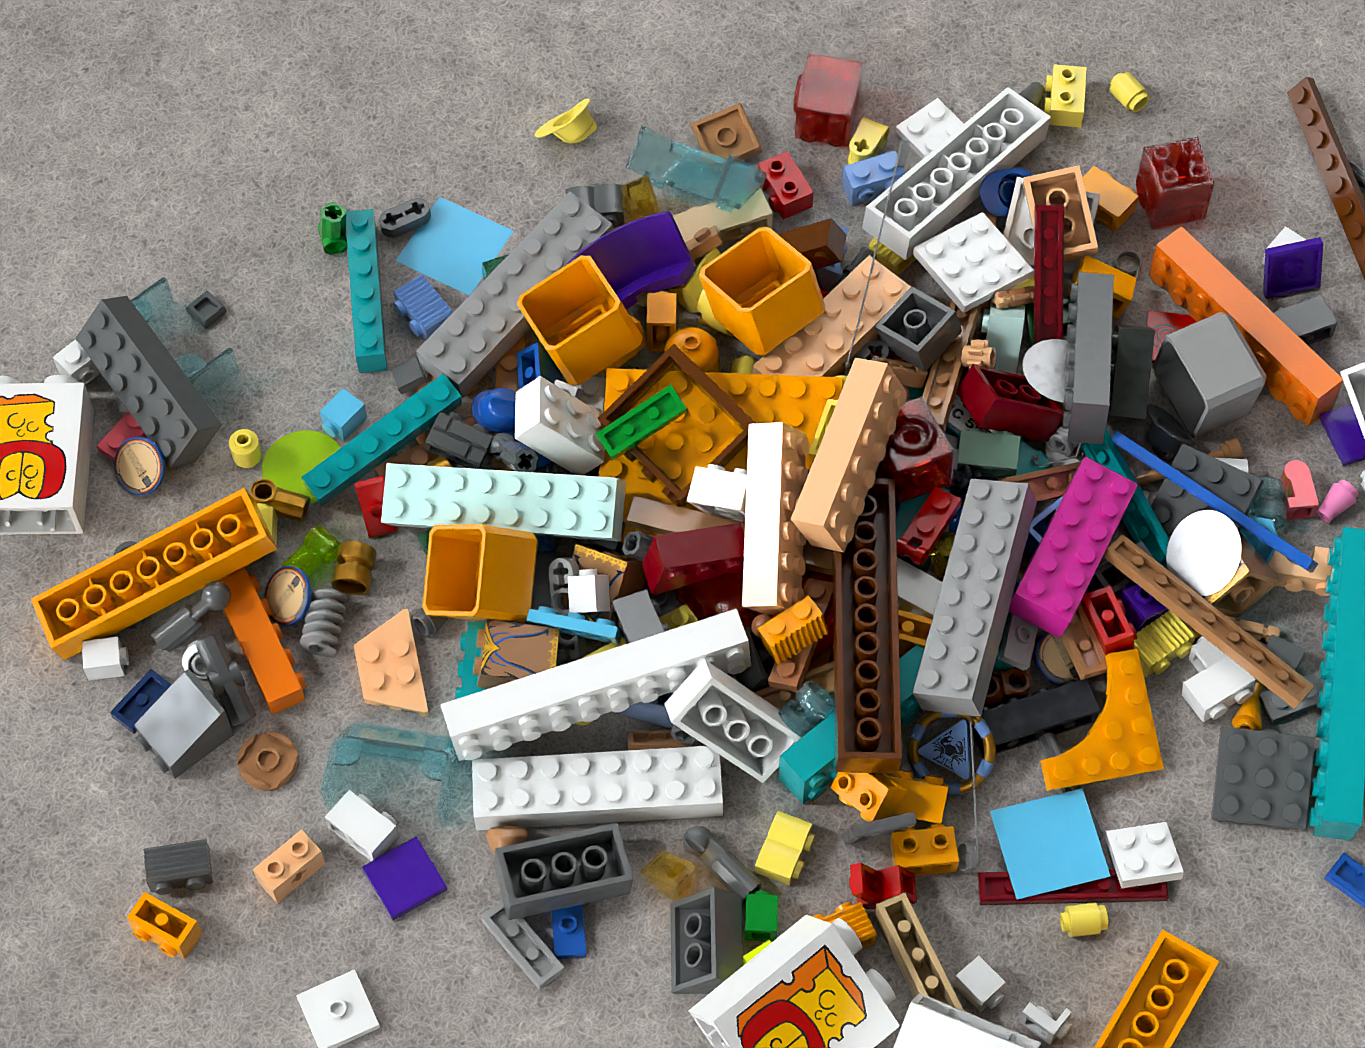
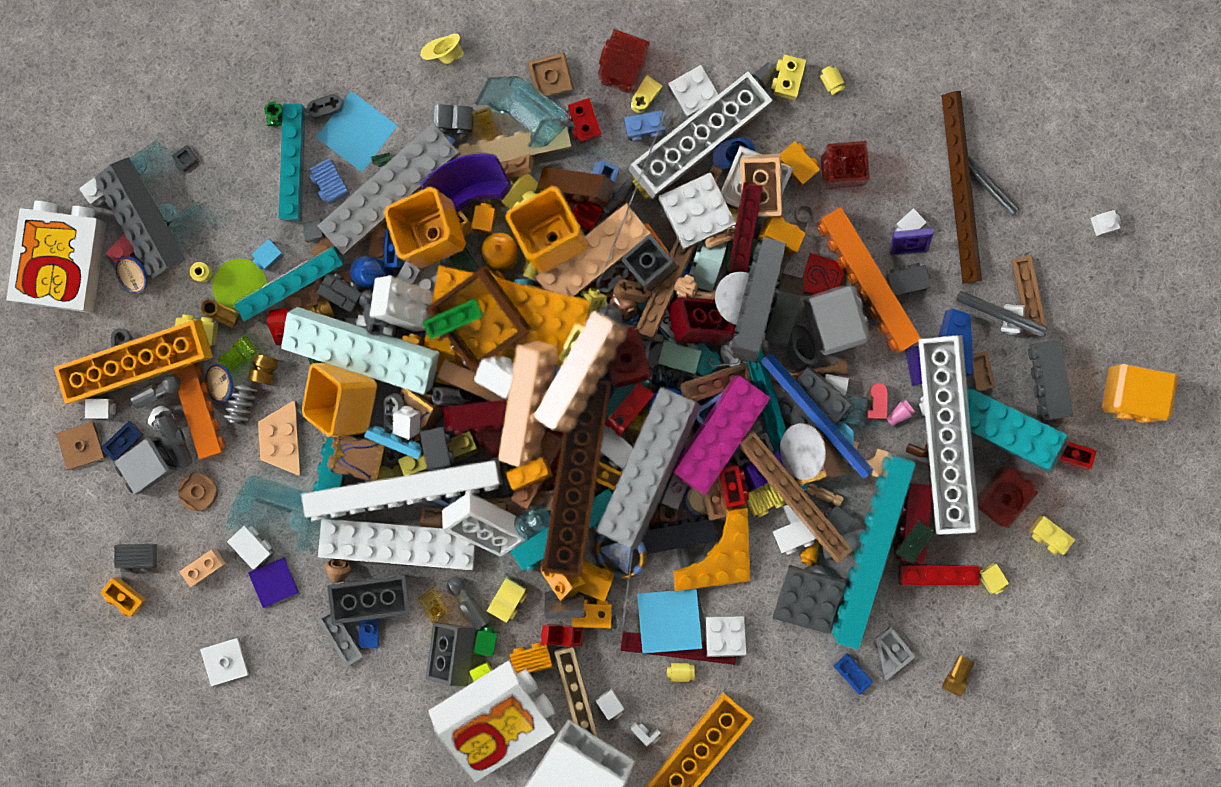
camera: 10 degrees right, 25 degrees up
(76, 719) = (80, 445): none -> medium nougat plate

